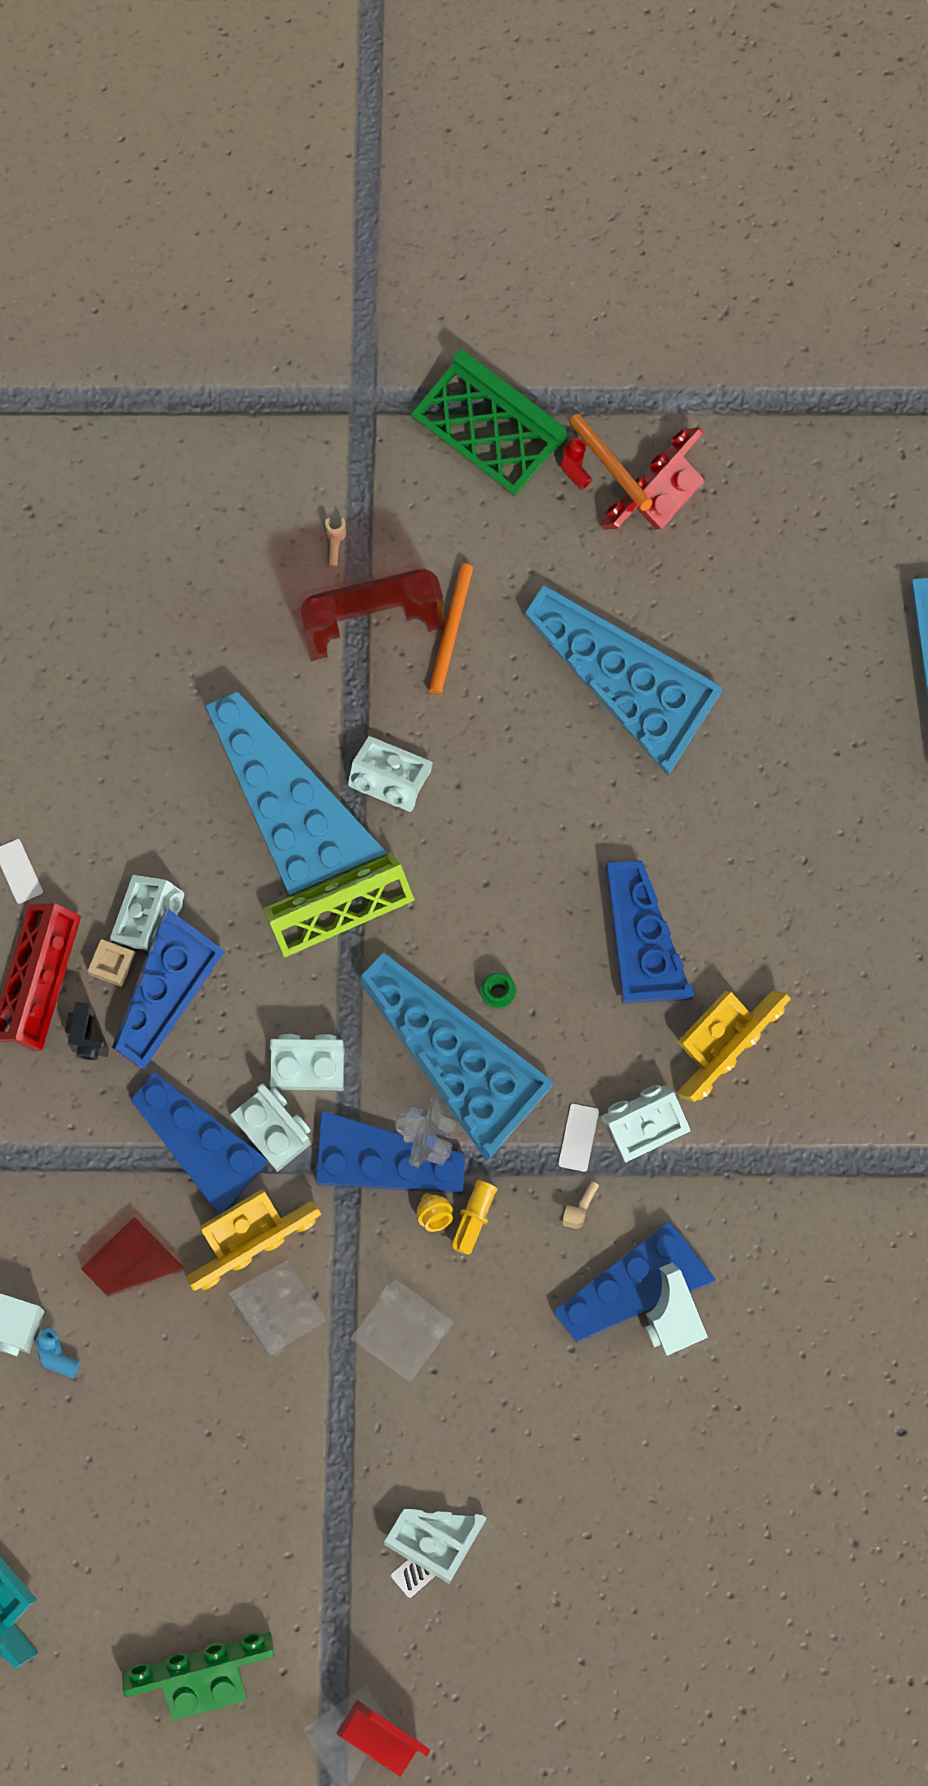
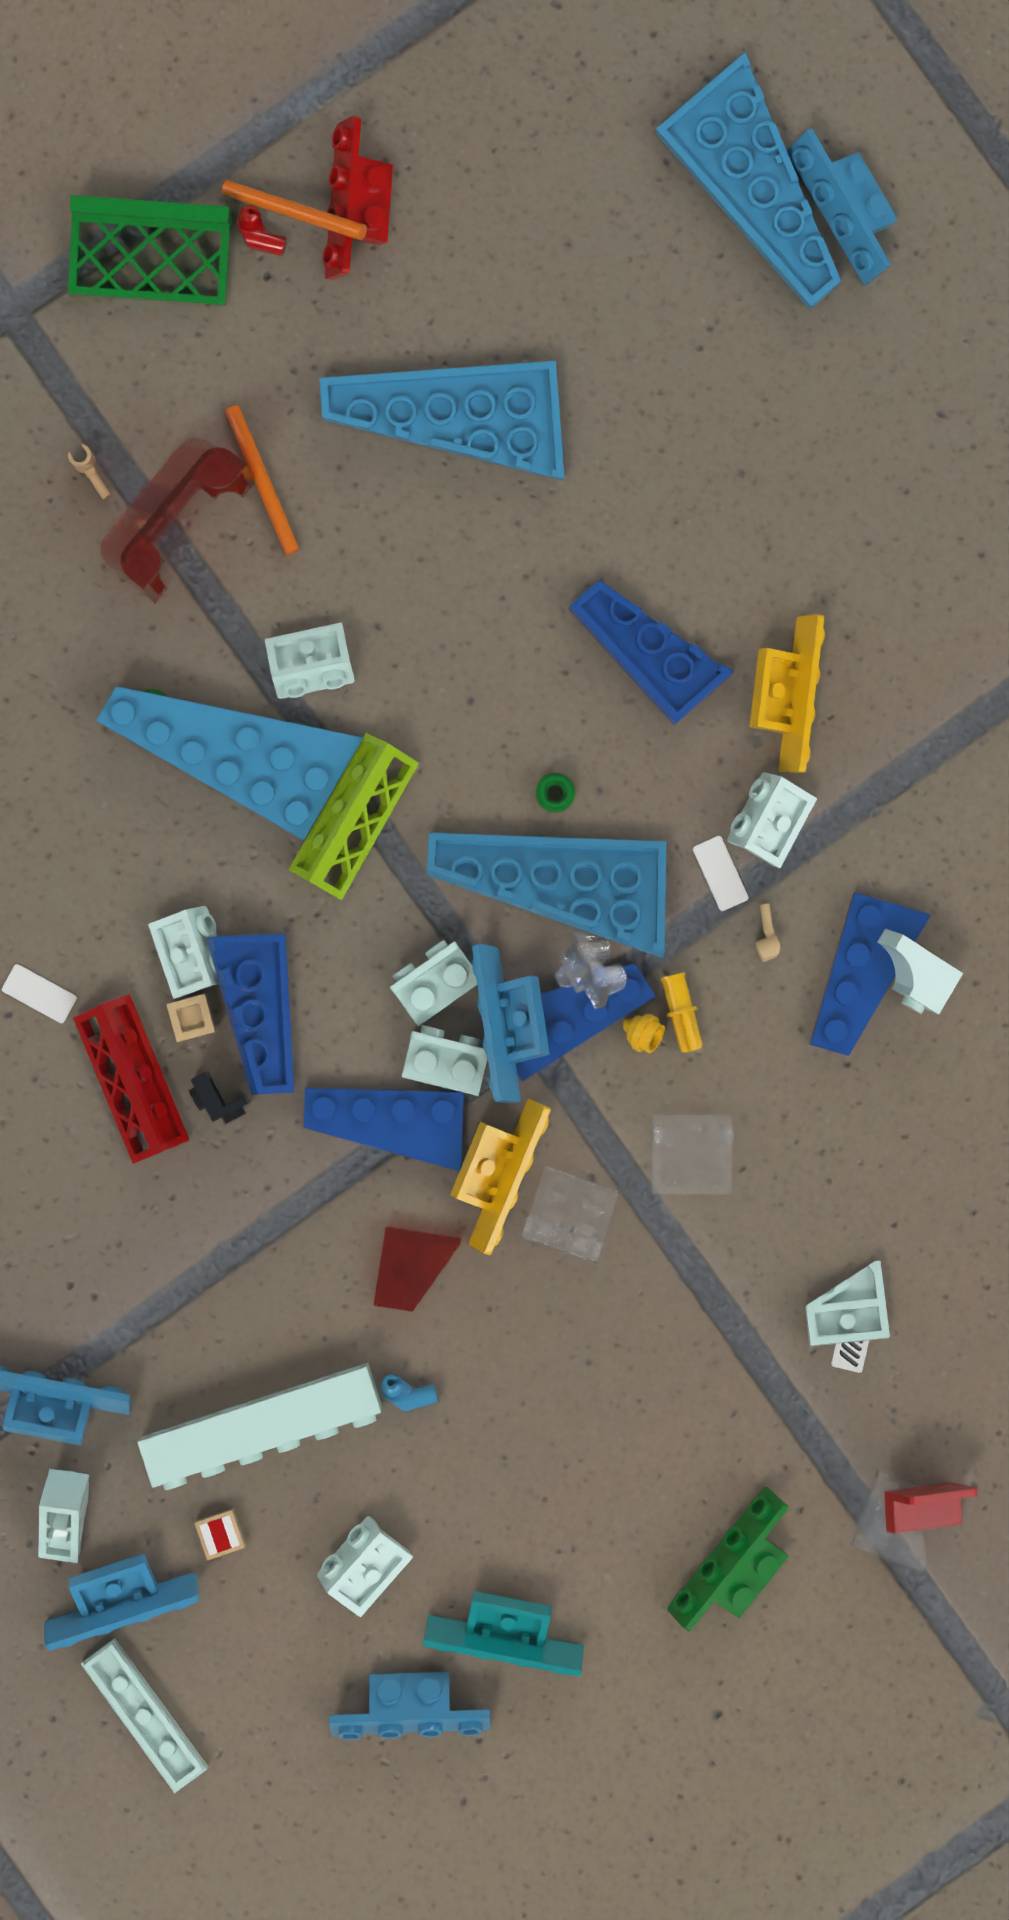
camera: 40 degrees left, 15 degrees up
(338, 1127) = (510, 1019): none -> dark azure bracket

